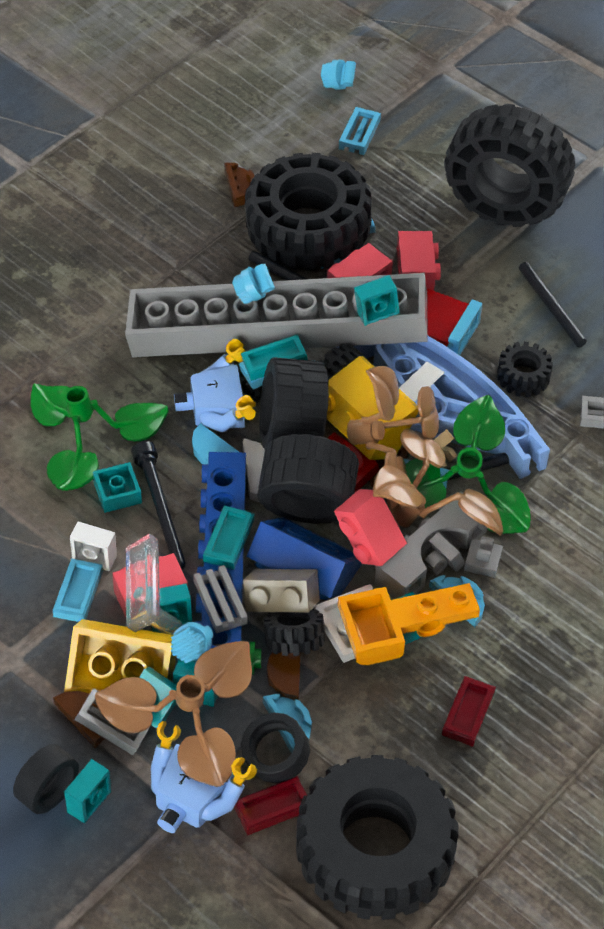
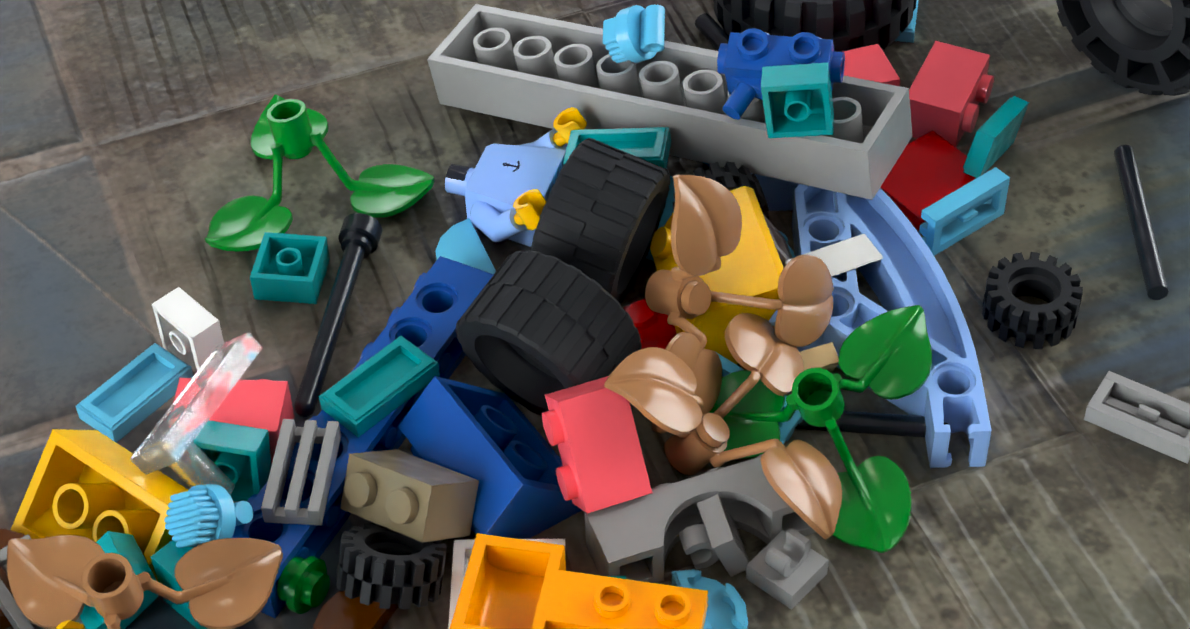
camera: 30 degrees right, 5 degrees down
(340, 281) = (752, 49): none -> blue brick
(459, 280) = (995, 136): none -> teal tile

